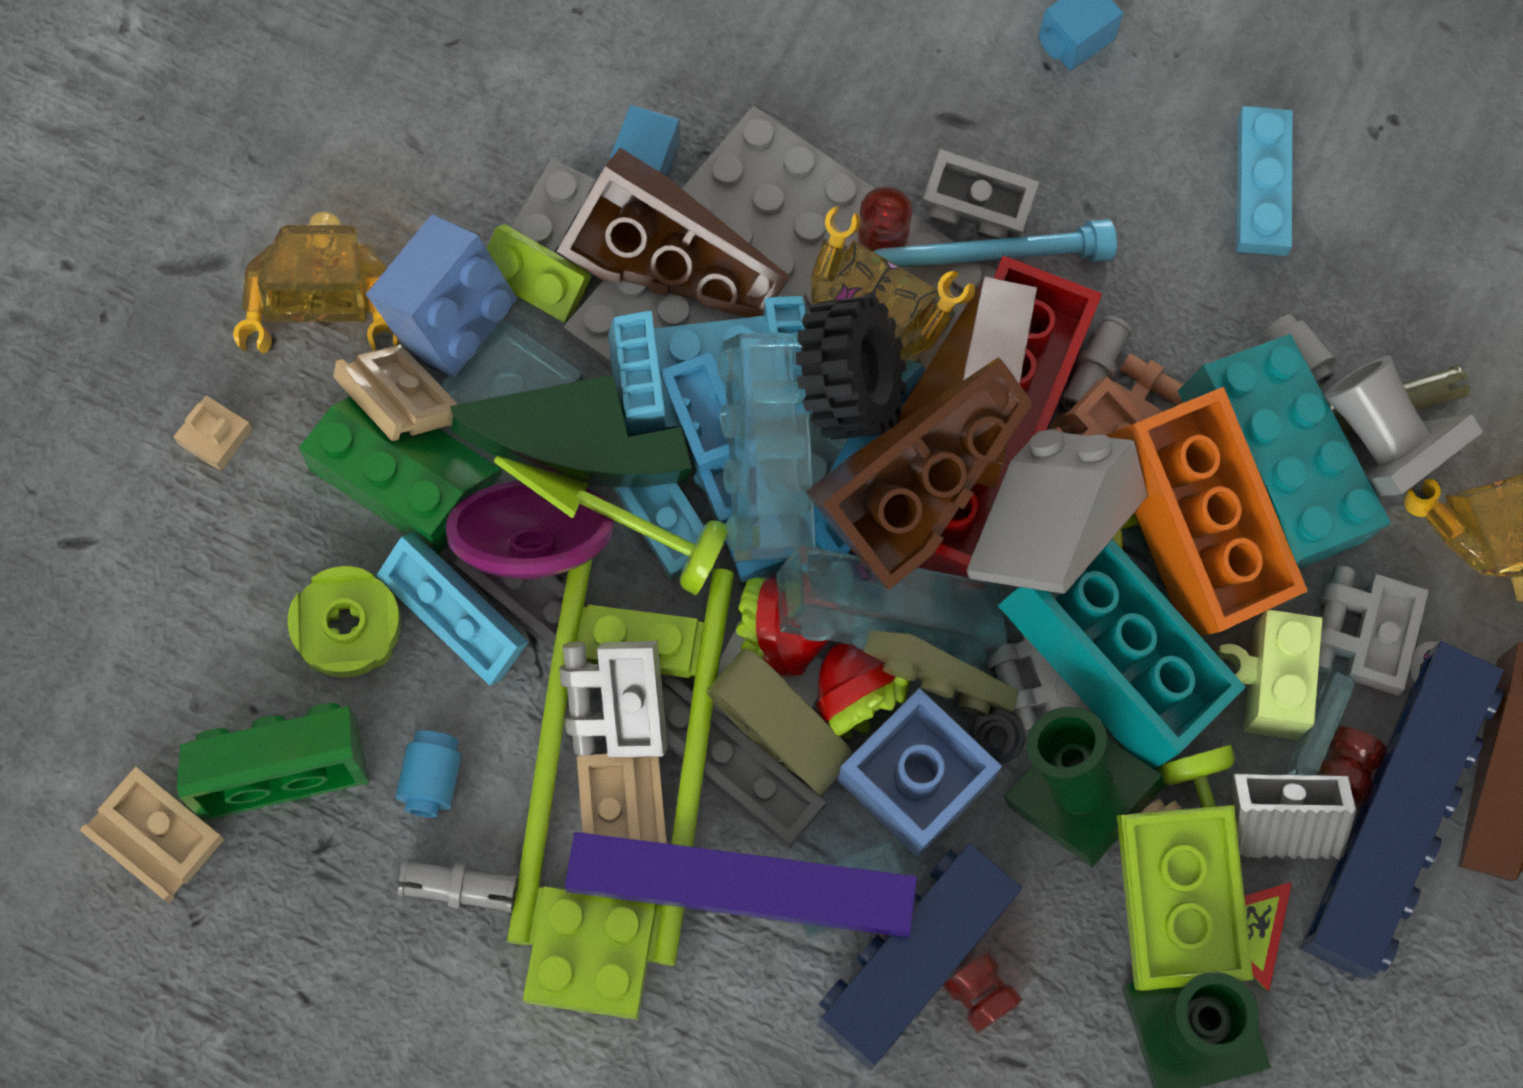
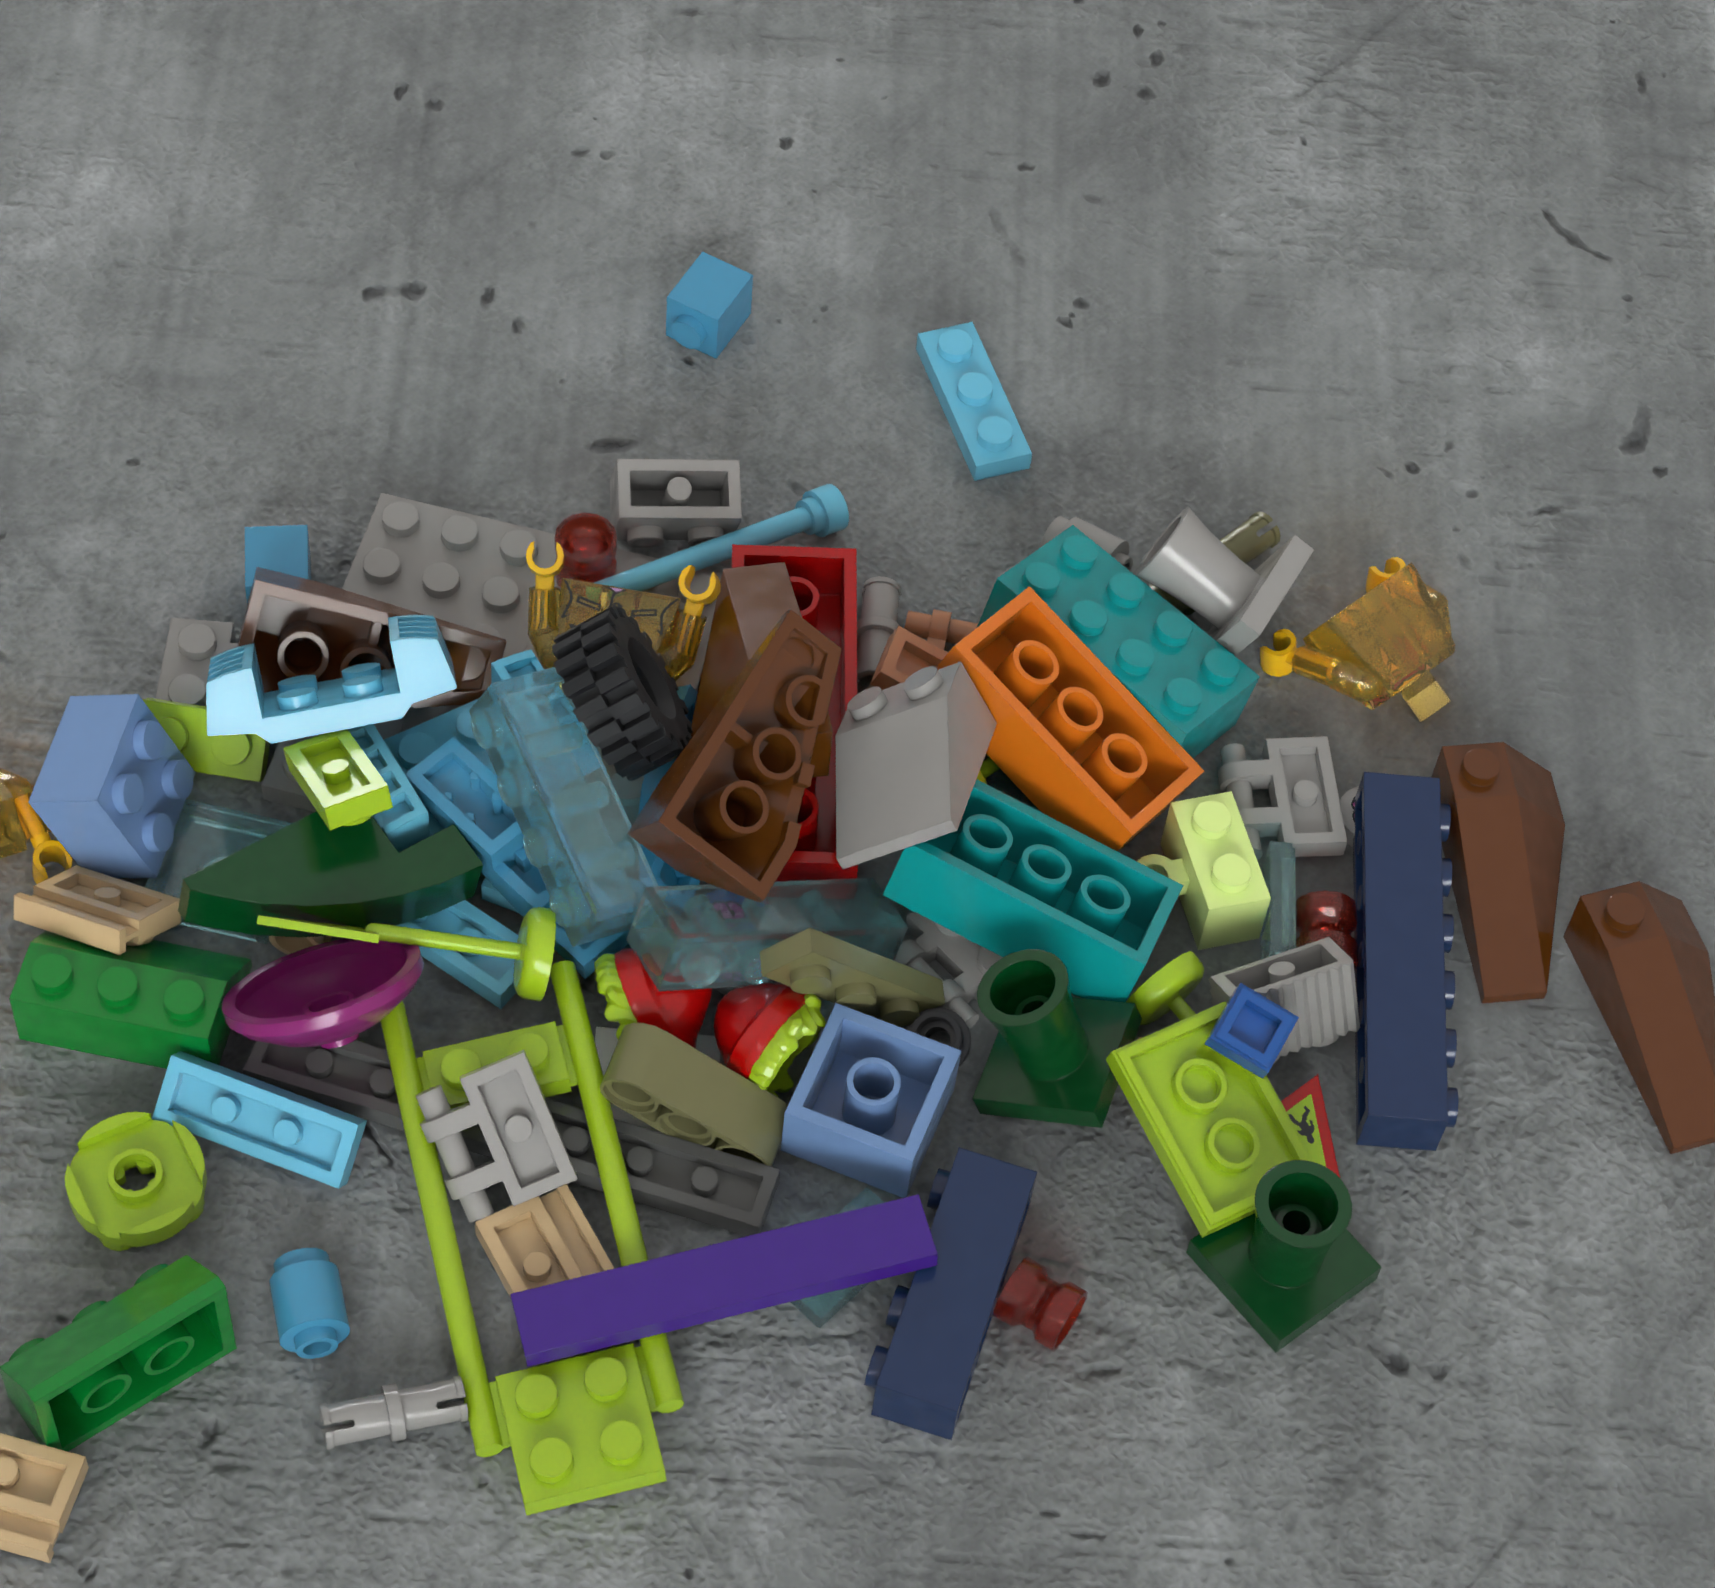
camera: 25 degrees left, 15 degrees down
(600, 362) = (338, 778): none -> lime plate
(626, 290) = (310, 708): none -> plate
(1243, 841) = (1251, 1030): none -> blue tile

